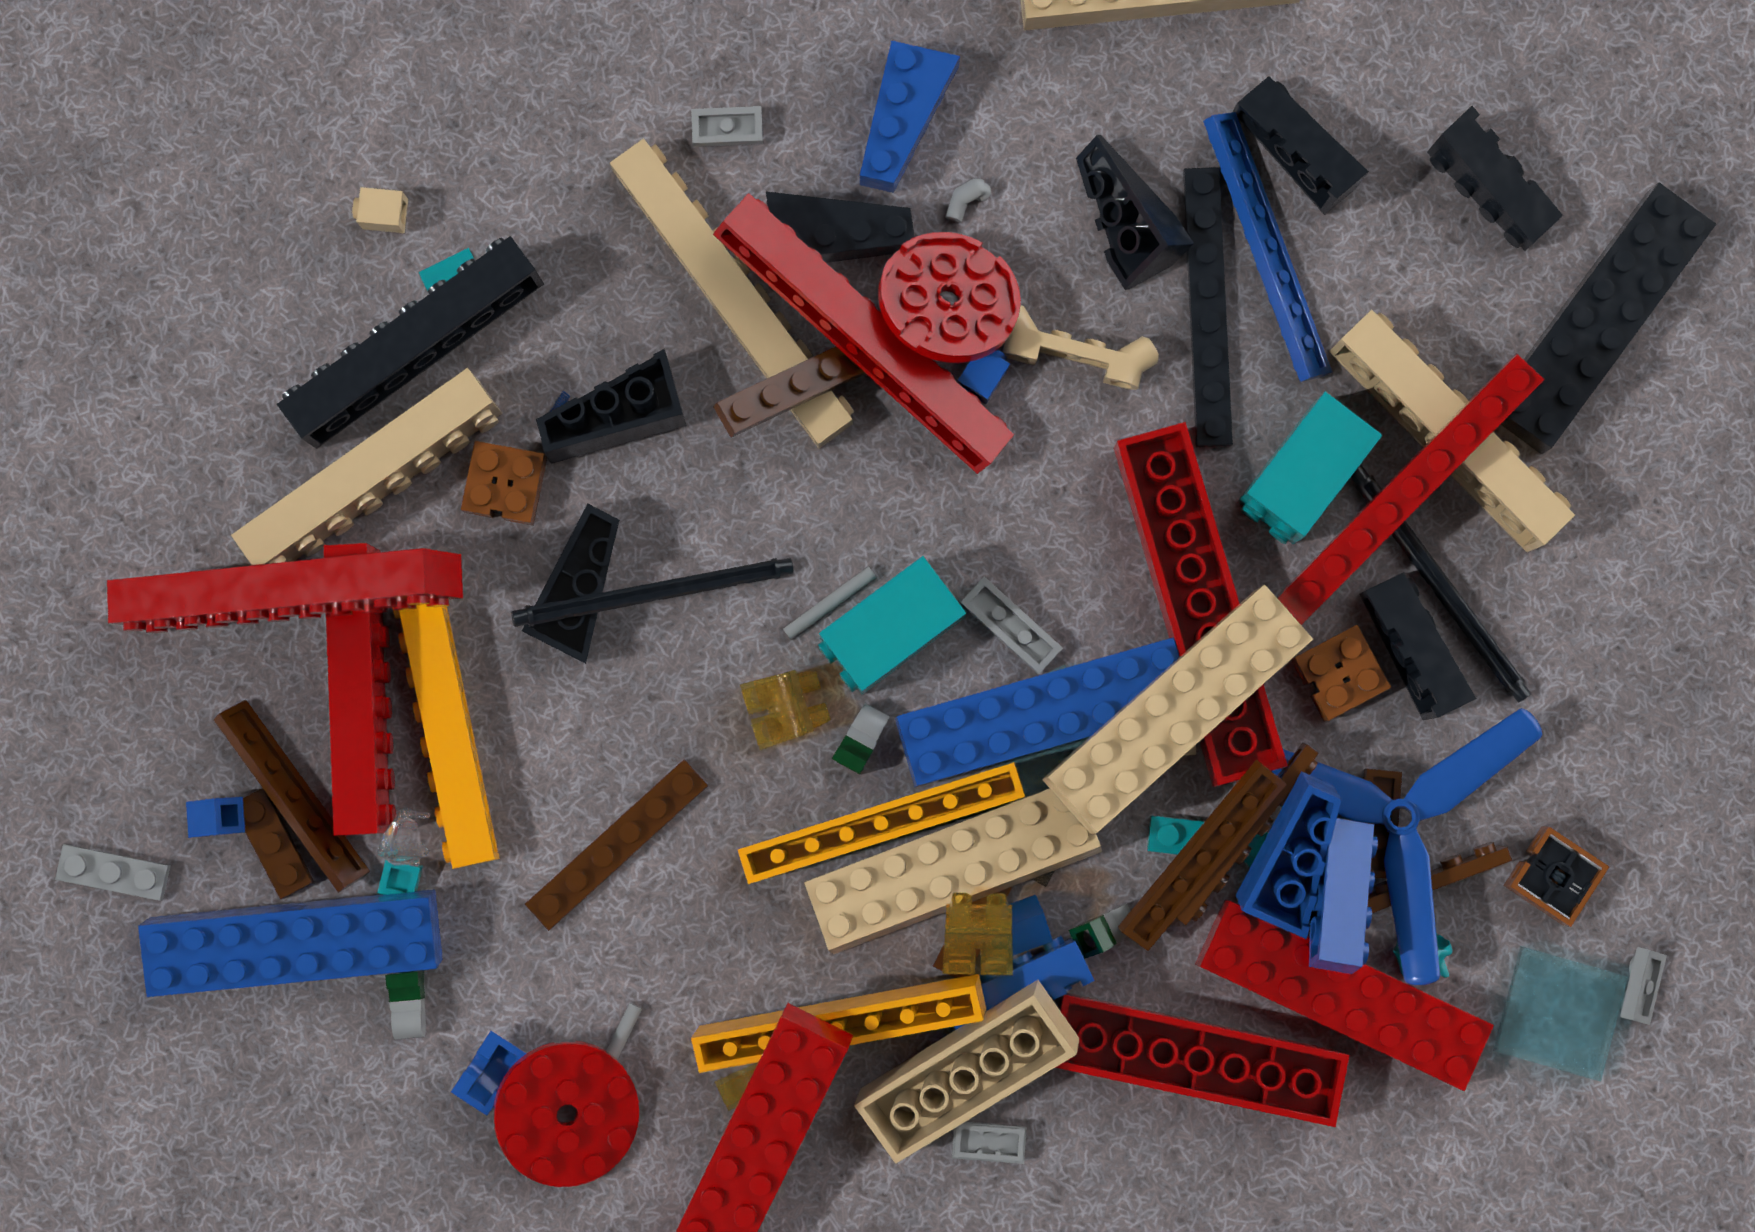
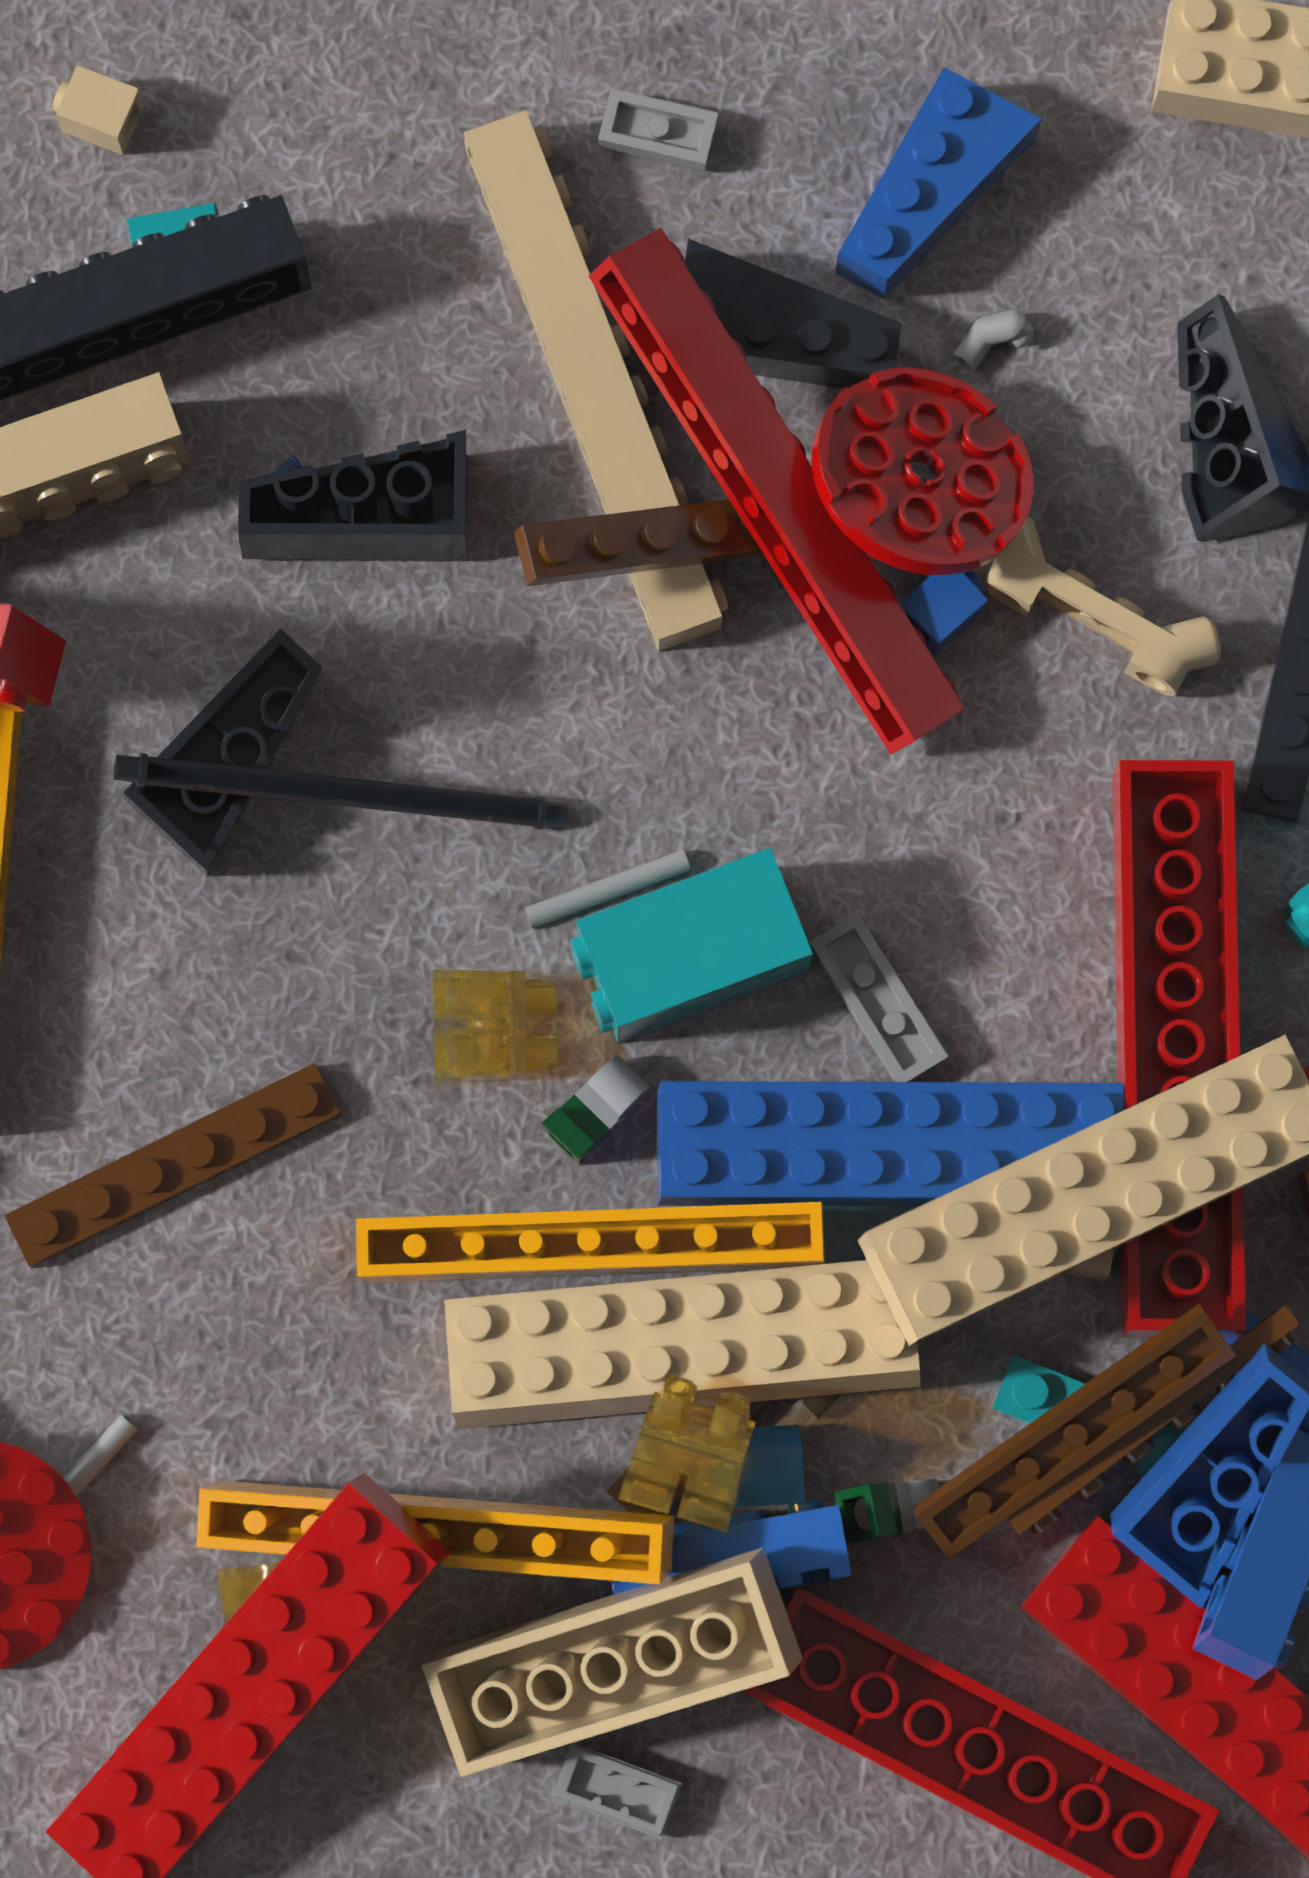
camera: 15 degrees right, 5 degrees down
(504, 482) = (163, 567): dark orange piece -> none

